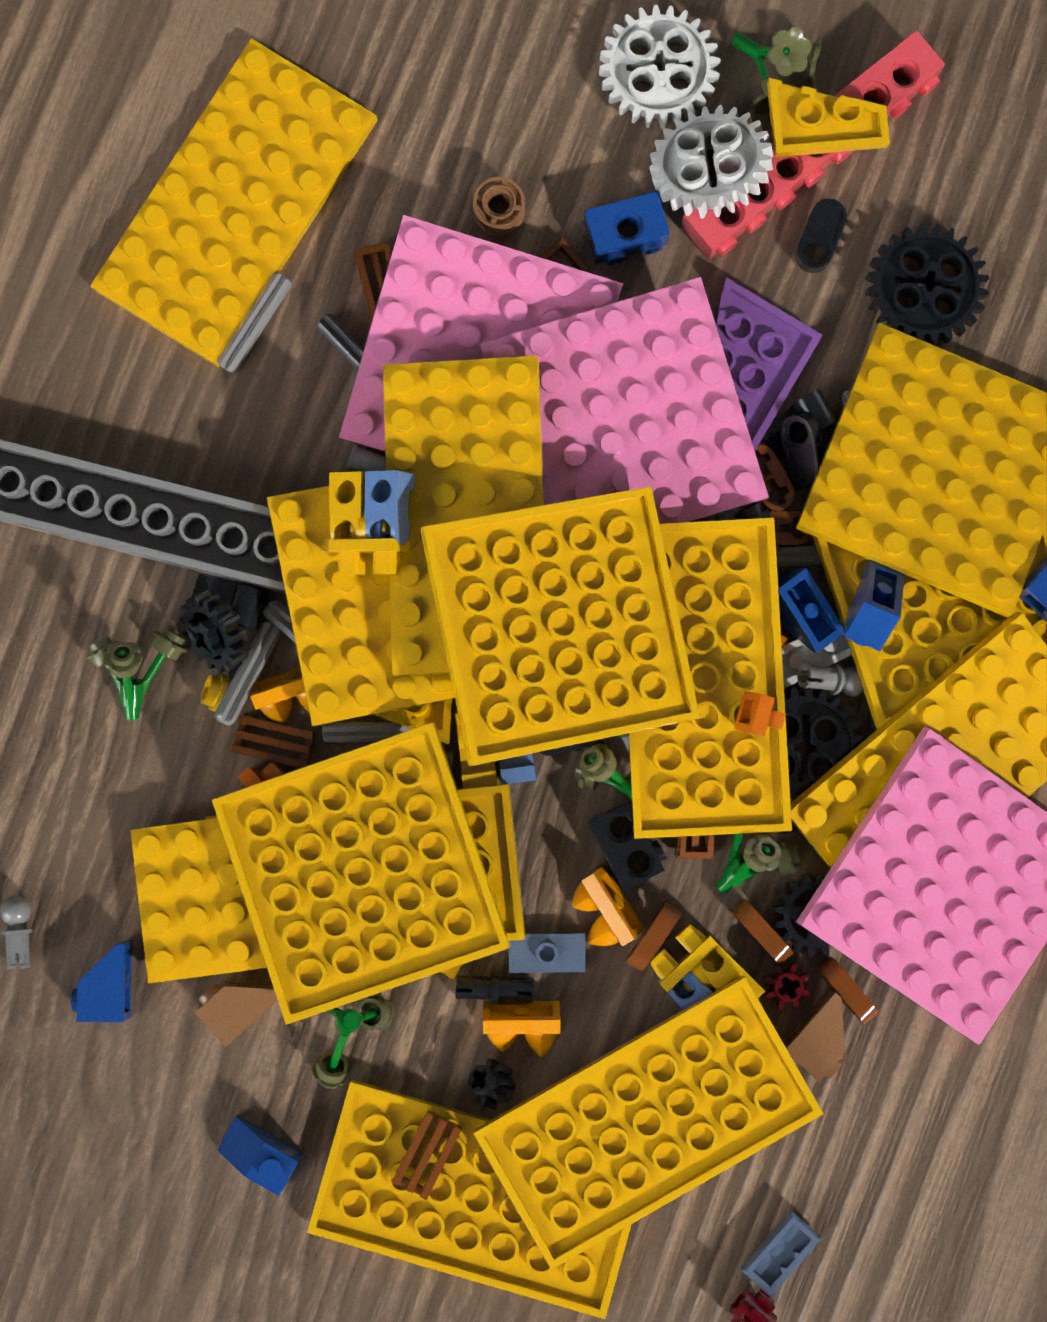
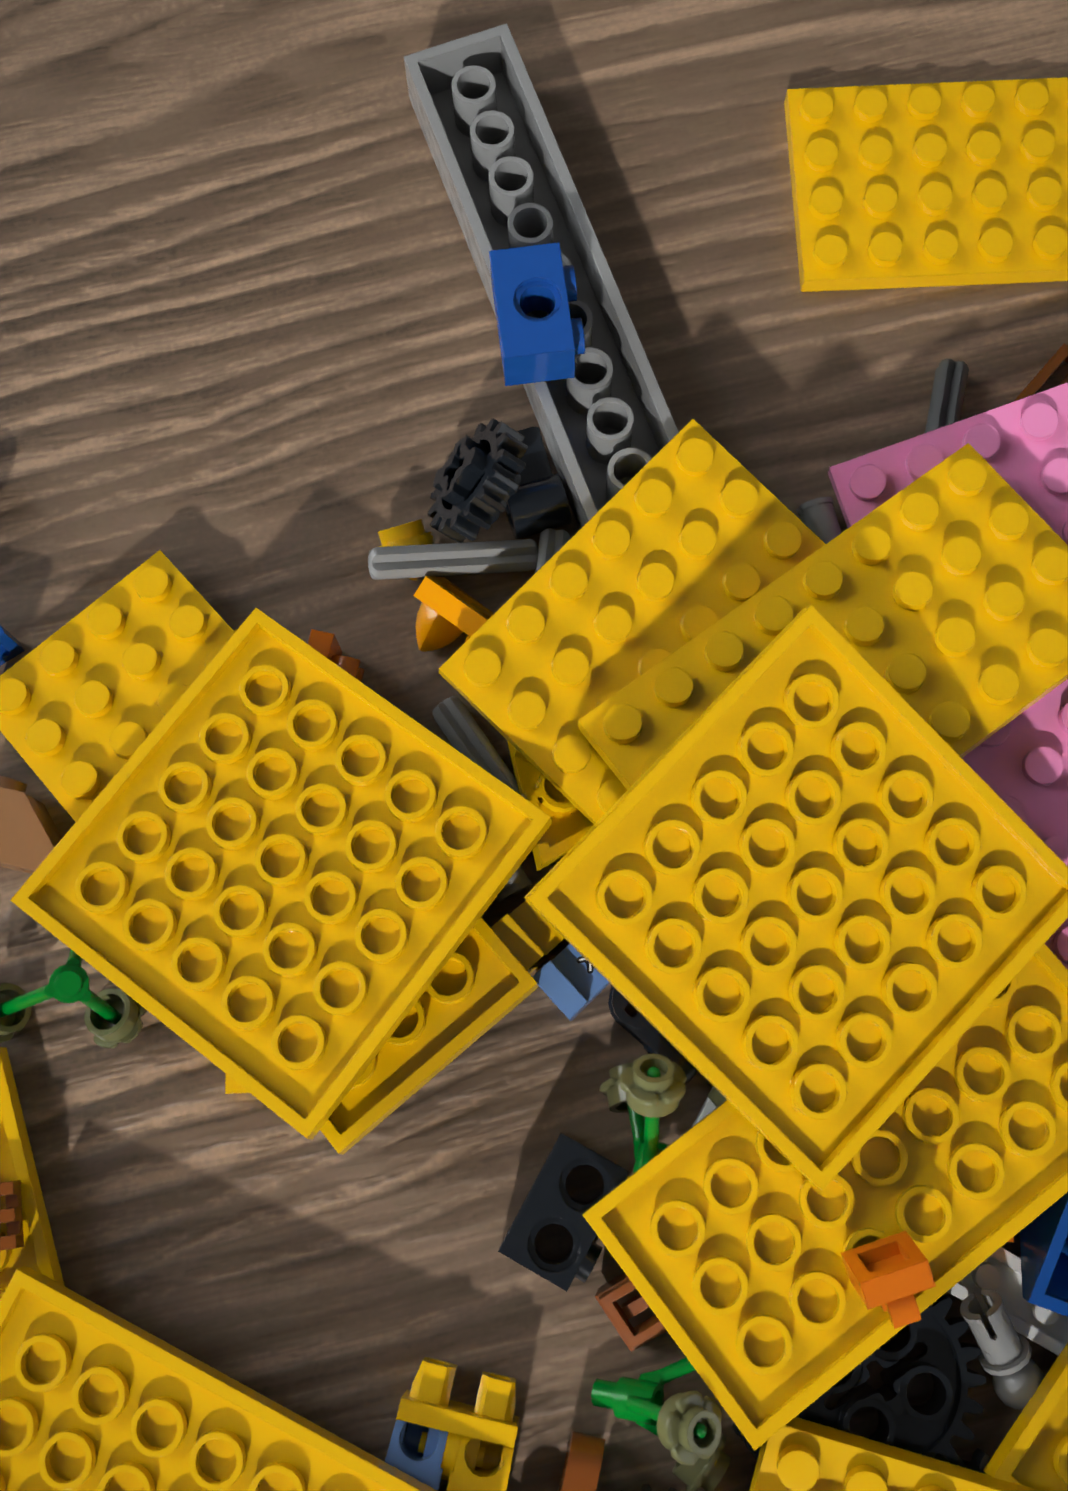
camera: 60 degrees right, 10 degrees down
(123, 531) = (531, 281): none -> blue brick
(124, 661) = (362, 386): olive plant -> none
(241, 734) = (372, 609): dark orange tile -> none
(254, 322) = (887, 292): light grey axle -> none
(370, 518) = (764, 549): yellow hips -> none
(491, 1084) = (110, 1247): black gear -> none
(494, 988) = (248, 1159): black pin -> none
(509, 1018) = (240, 1247): light orange tile -> none
(548, 953) = (344, 1202): sand blue plate -> none
(618, 918) = (454, 1269): light orange tile -> none
(653, 936) = (463, 1339): dark orange beam -> none

